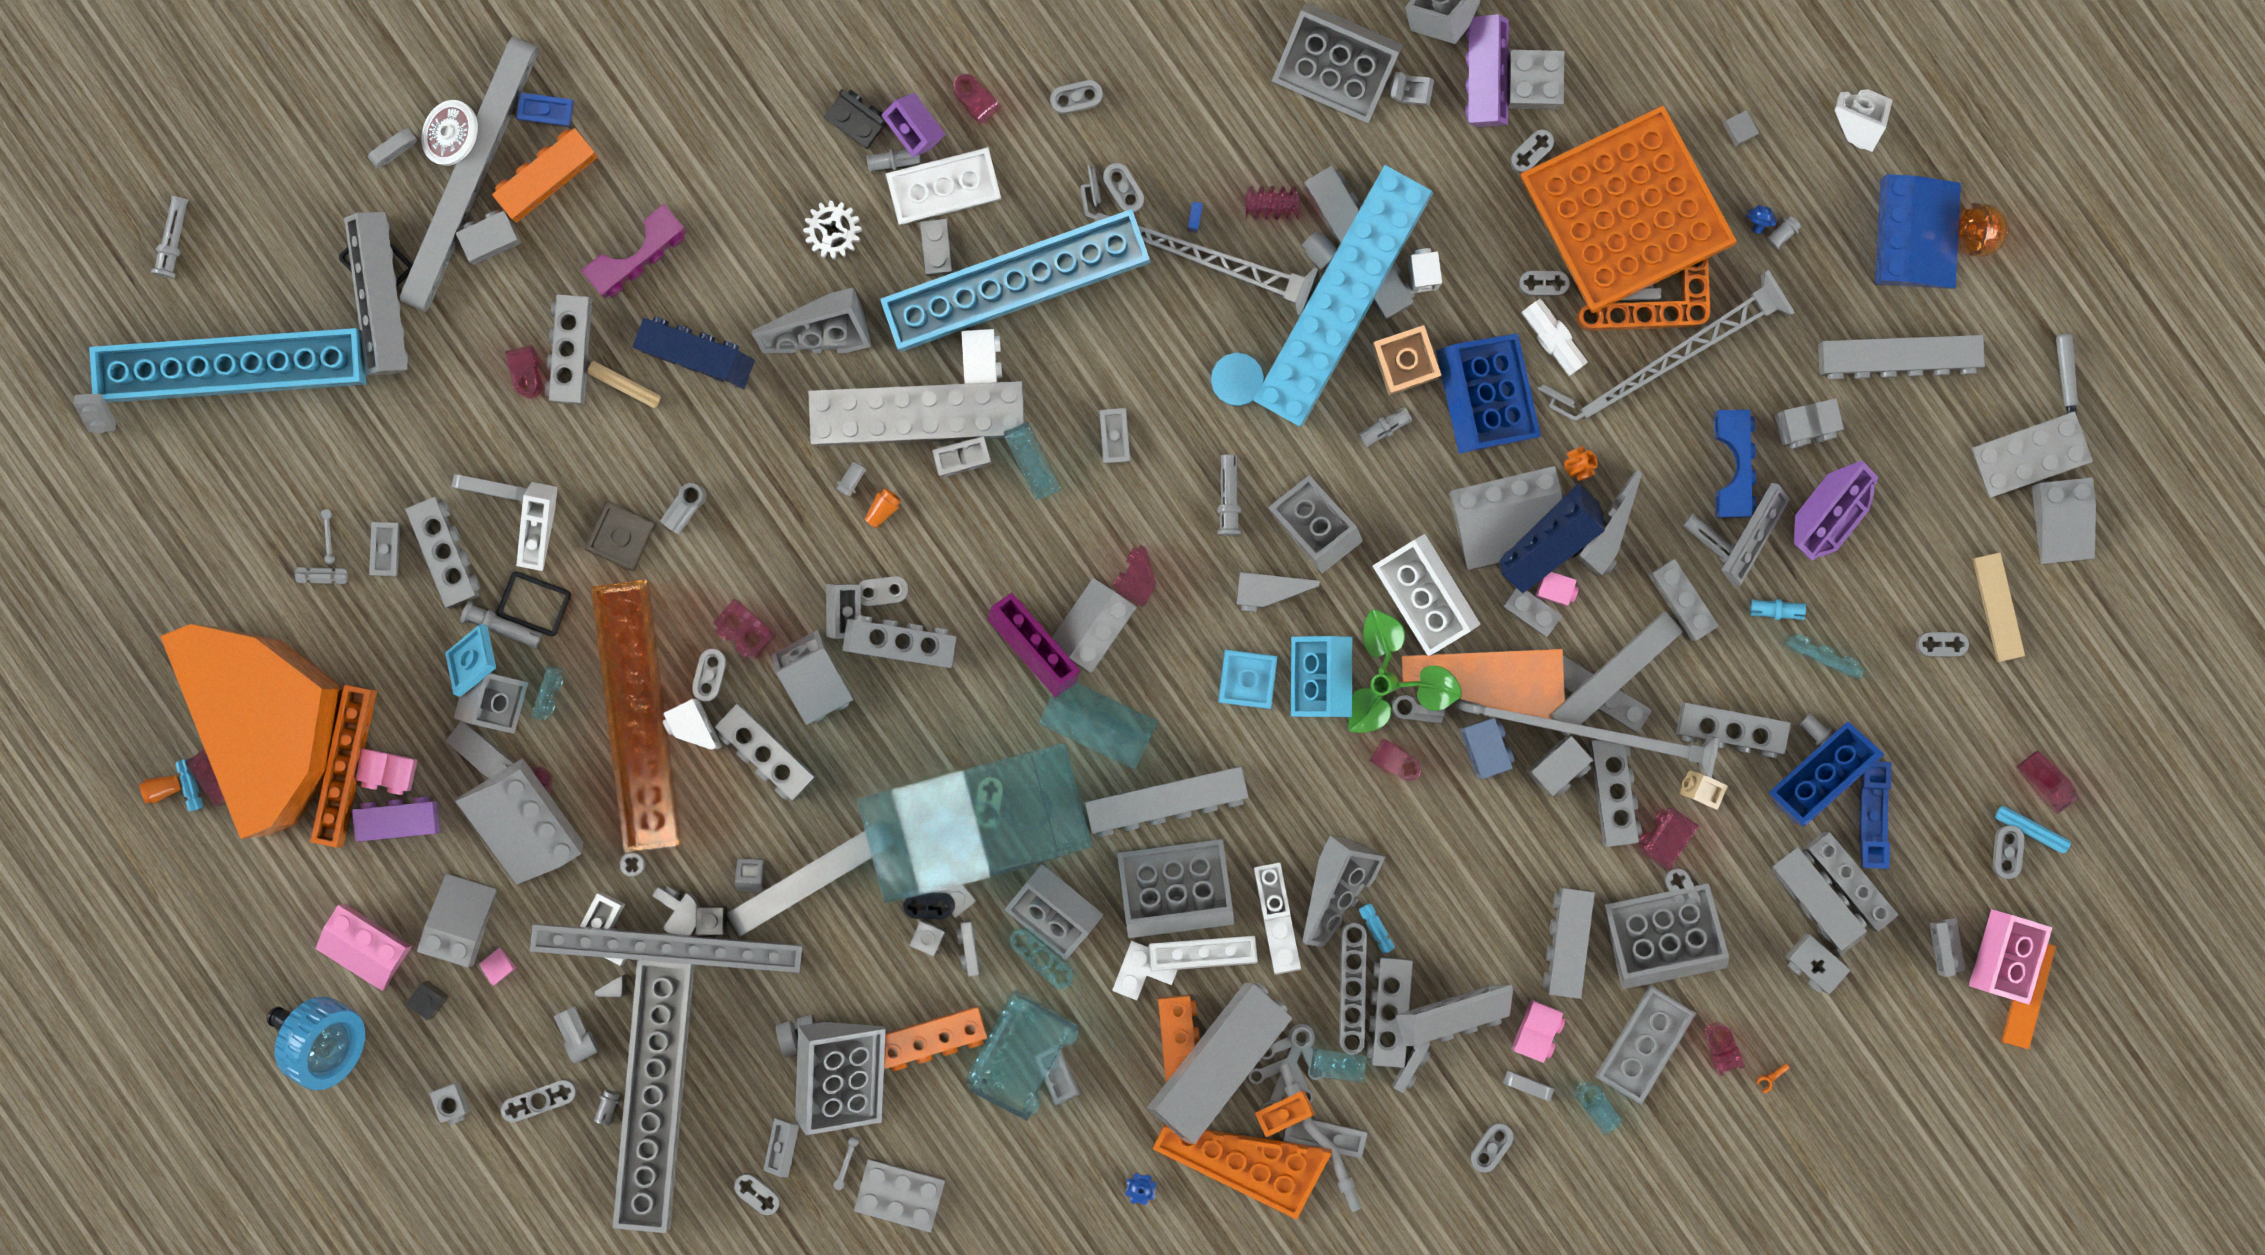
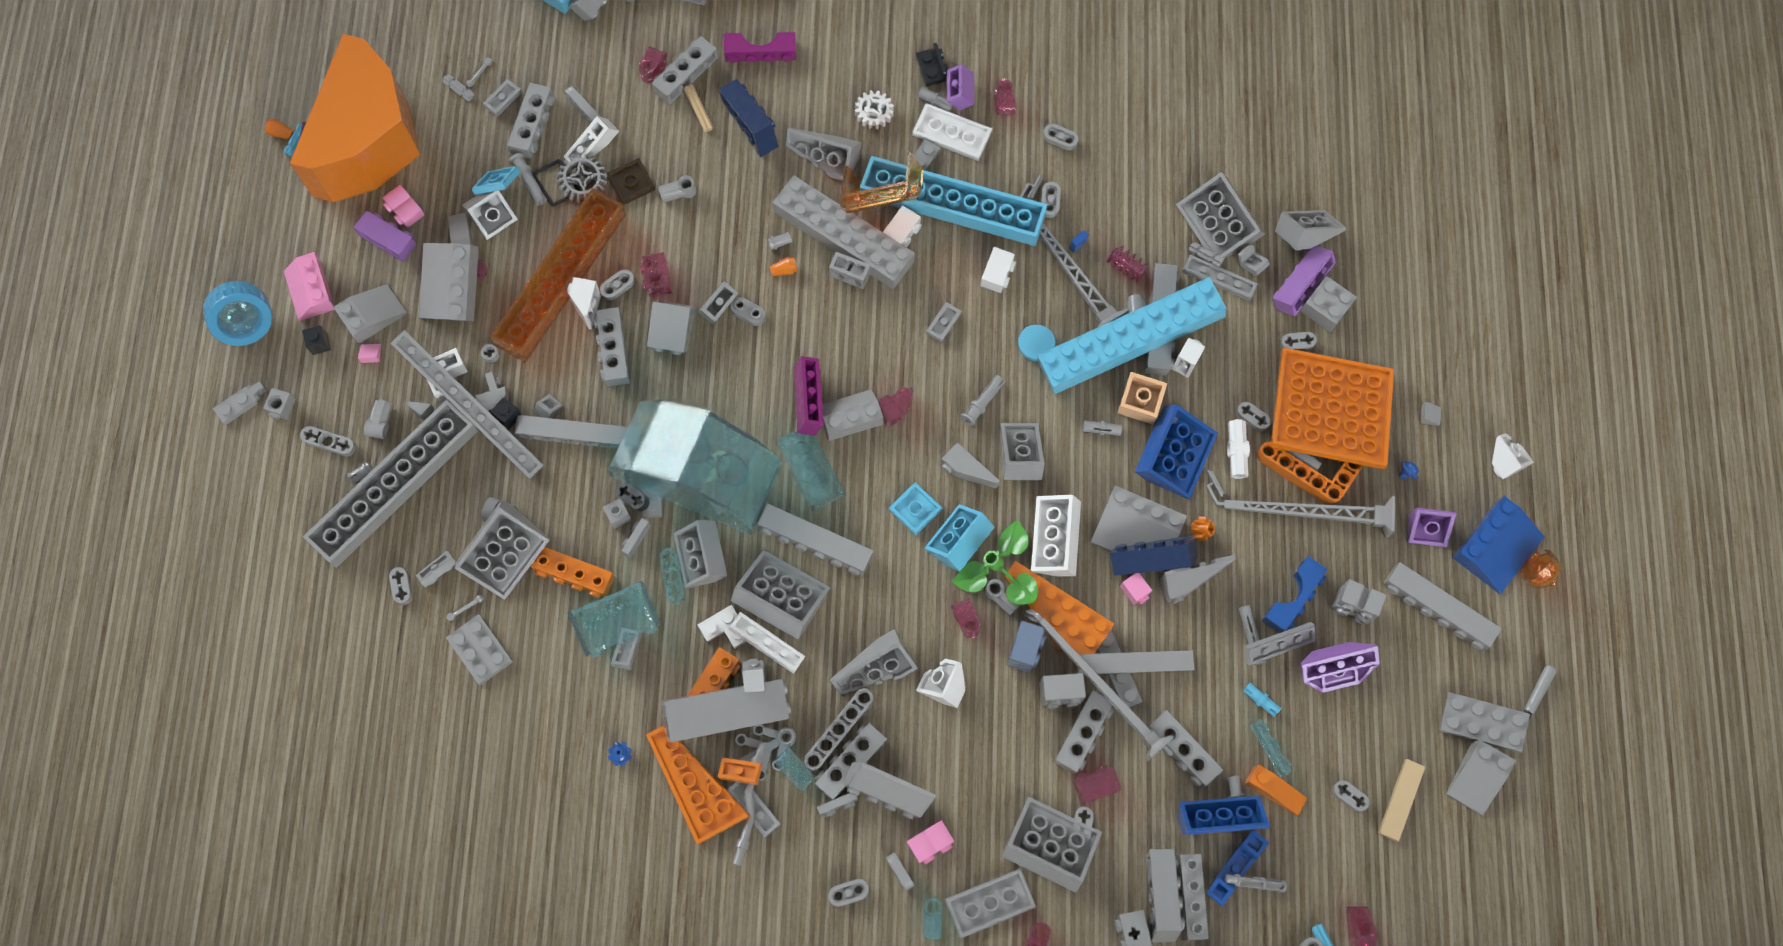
camera: 30 degrees right, 15 degrees down
(342, 764) = (370, 193): orange brick -> none
(402, 1134) = (239, 402): none -> light grey hinge
(544, 705) = (524, 228): clear light blue plate -> none
(547, 563) = (574, 179): none -> light grey gear
(914, 368) = (855, 201): none -> clear orange windscreen
(939, 653) = (723, 336): light grey brick -> none
(1032, 460) = (886, 298): clear light blue plate -> none
(1128, 324) = (997, 270): none -> white brick
(1222, 1004) = (754, 675): none -> slope
(1277, 918) = (826, 655): white slope -> none
(1352, 121) = (1206, 254): none -> light grey axle
(1376, 928) = (880, 707): medium azure axle -> none
(1387, 137) = (1220, 277): none -> light grey tile
(1426, 853) = (944, 683): none -> white slope
(1532, 611) = (1112, 593): light grey plate -> none
(1569, 943) = (990, 803): light grey brick -> none
(1683, 600) = (1208, 650): light grey brick -> none
(1703, 789) = (1140, 772): tan bracket -> none
(1786, 230) = (1417, 488): light grey pin -> none
(1829, 271) = (1430, 526): none -> medium lavender slope
(1859, 698) = (1275, 789): none -> orange slope
(1907, 814) = (1257, 882): none -> light grey piece

